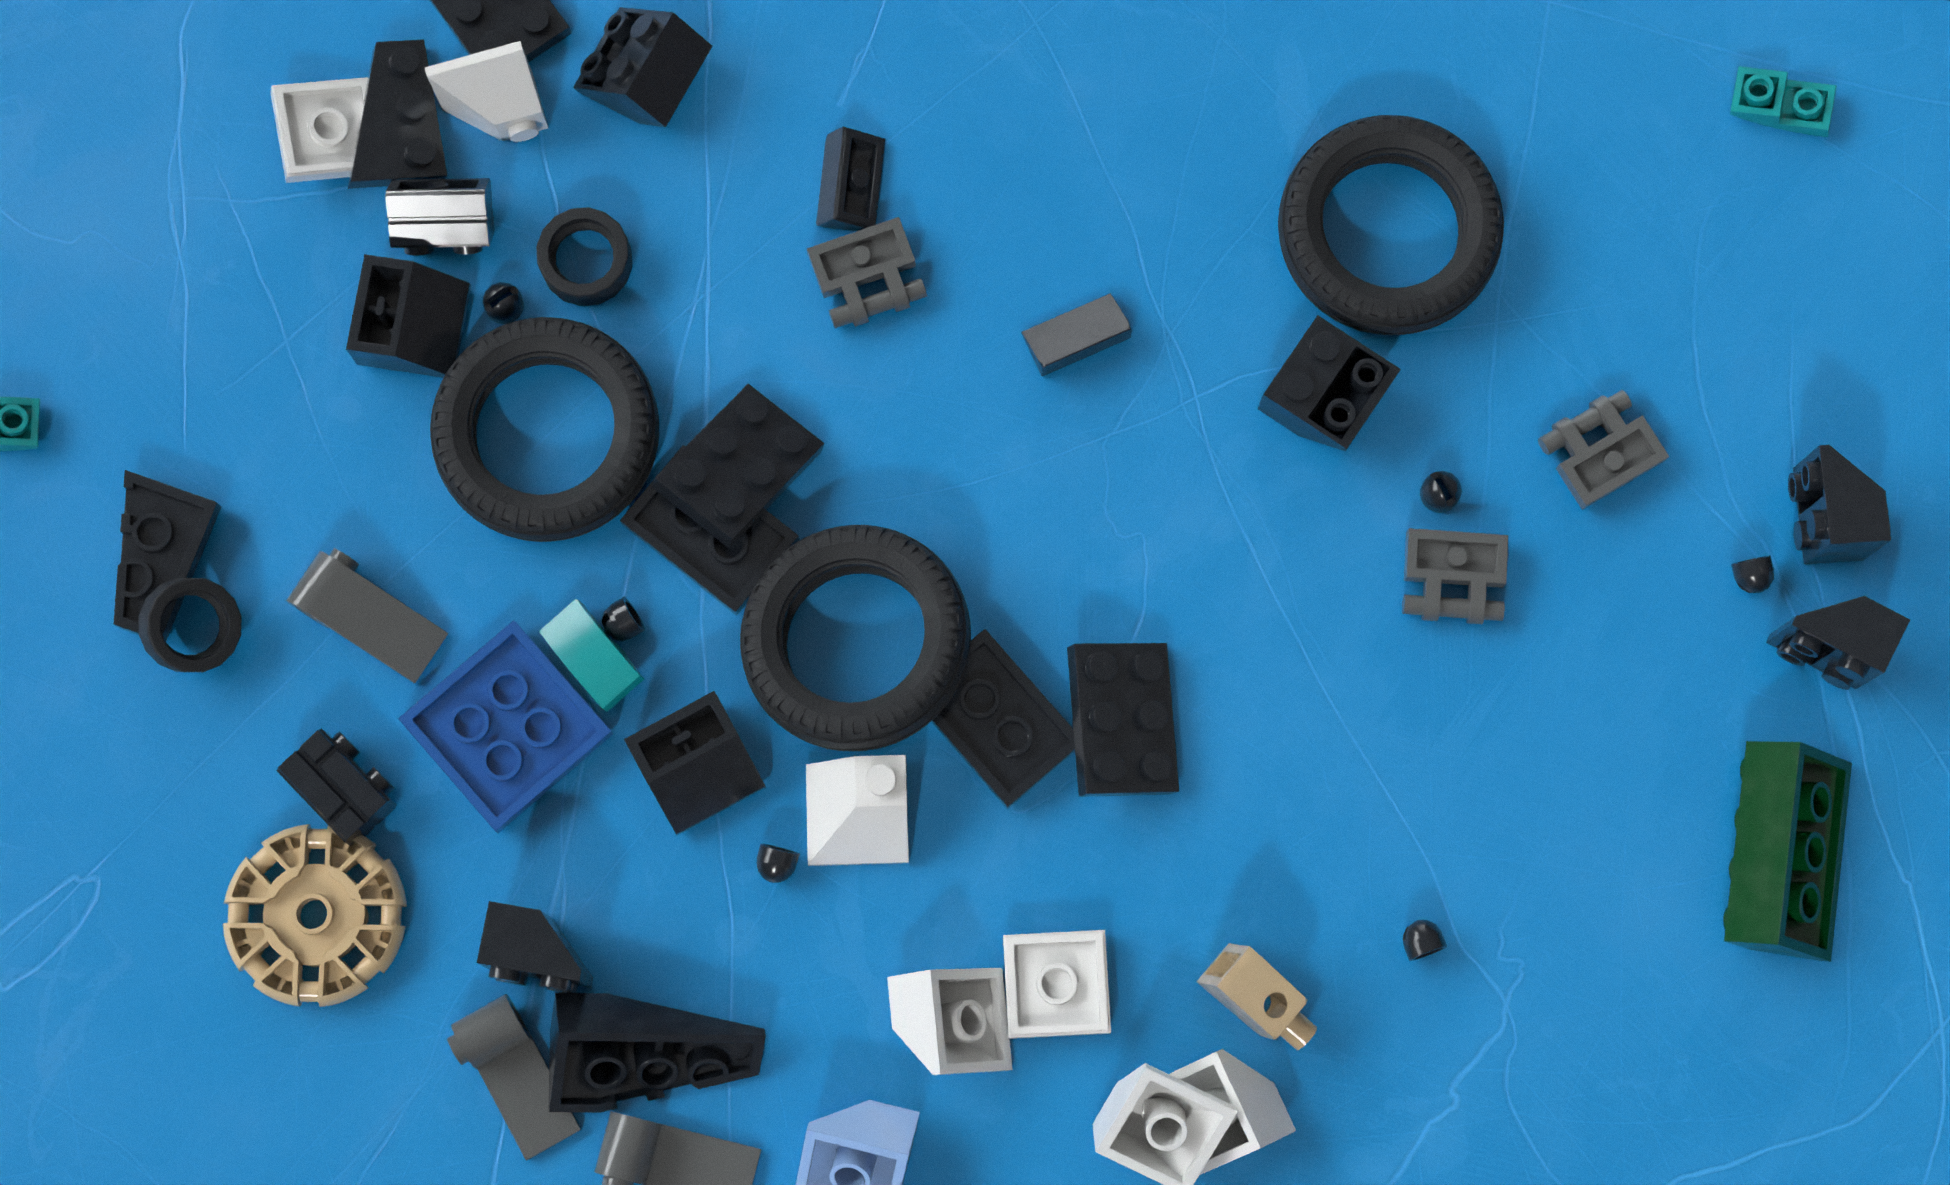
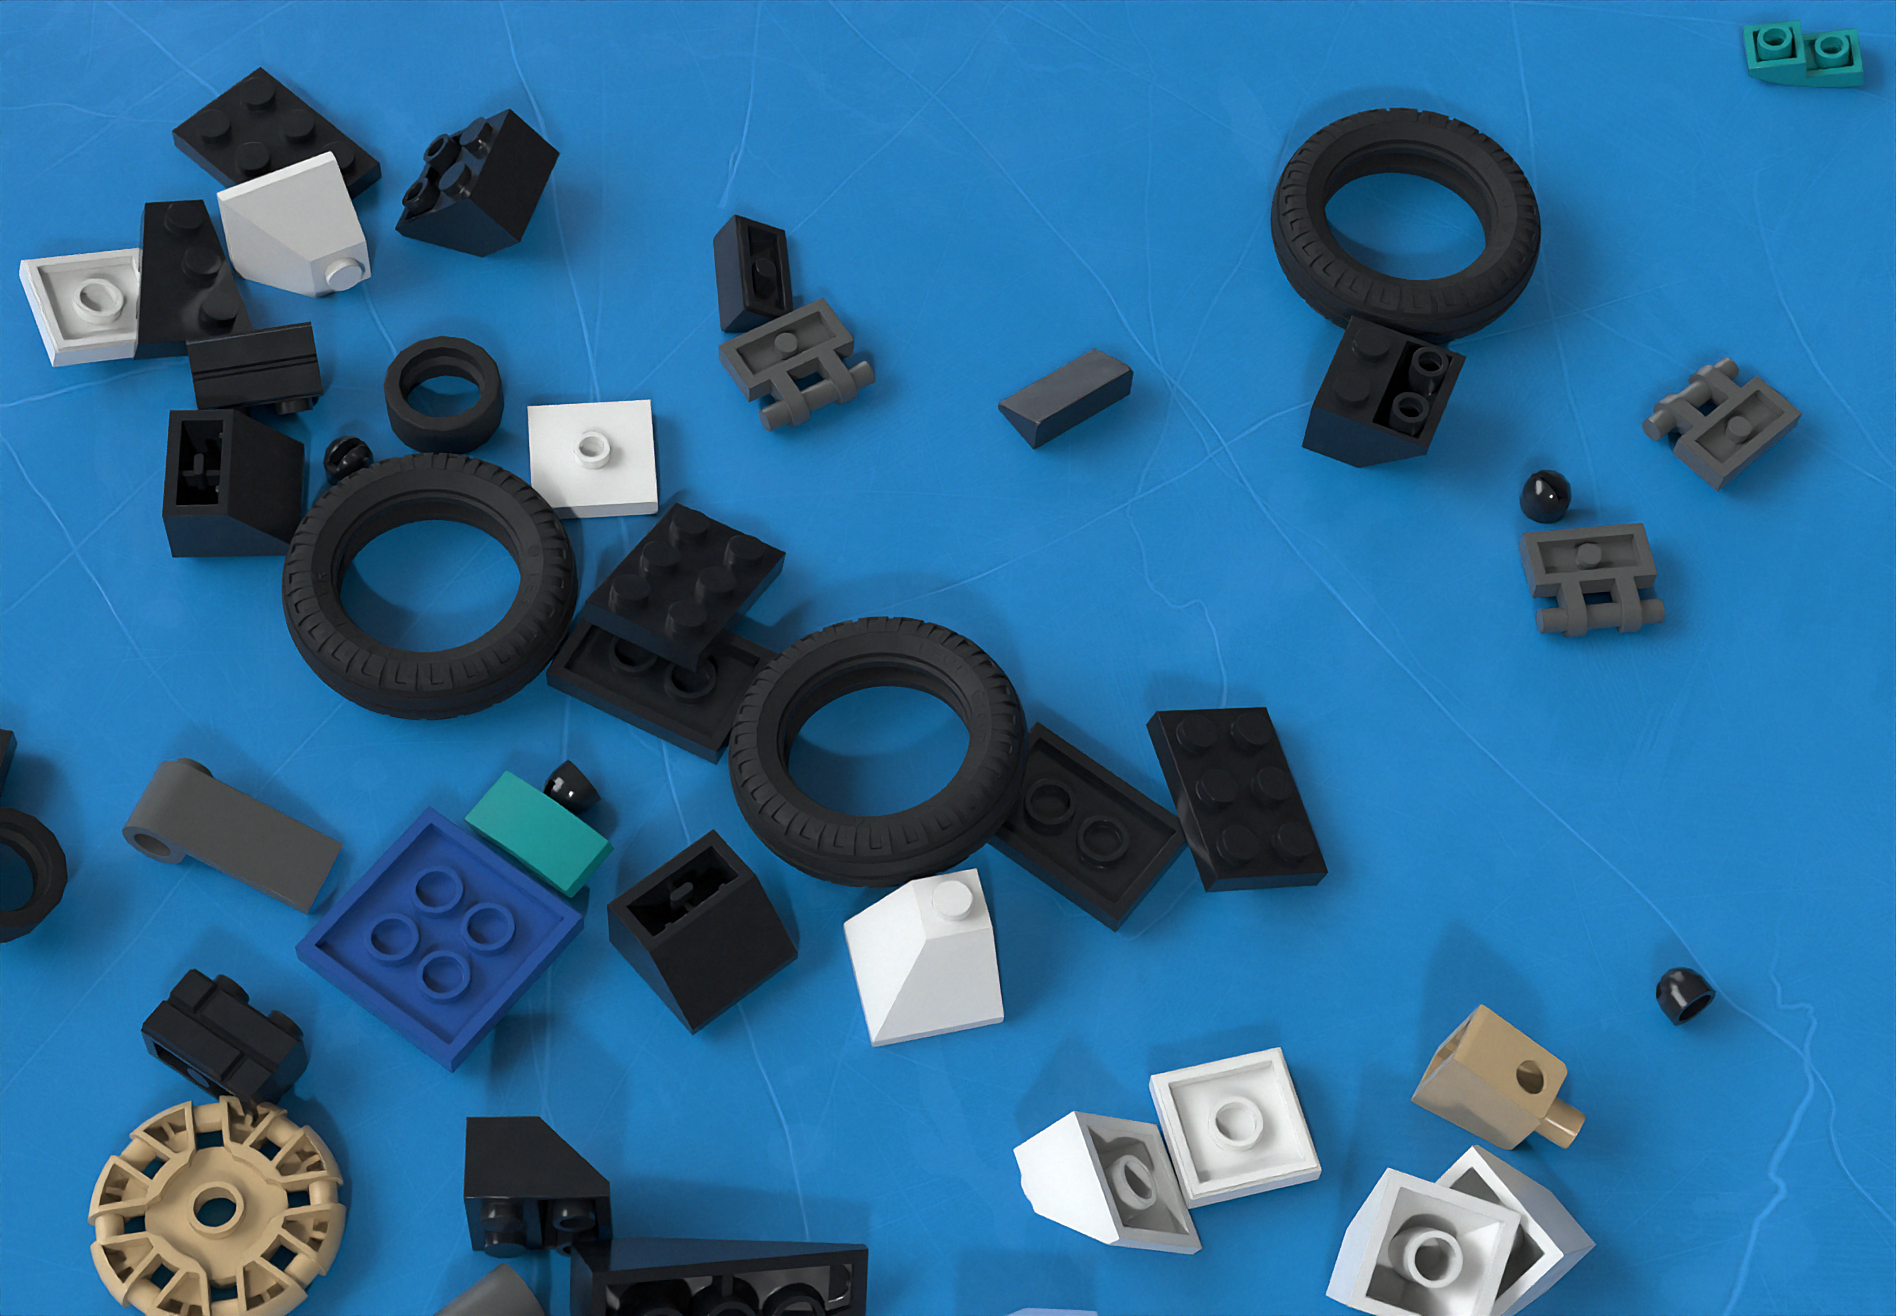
camera: 15 degrees left, 20 degrees down
(691, 330) = (594, 458): none -> white plate
(776, 863) = (832, 1042): black hinge -> none

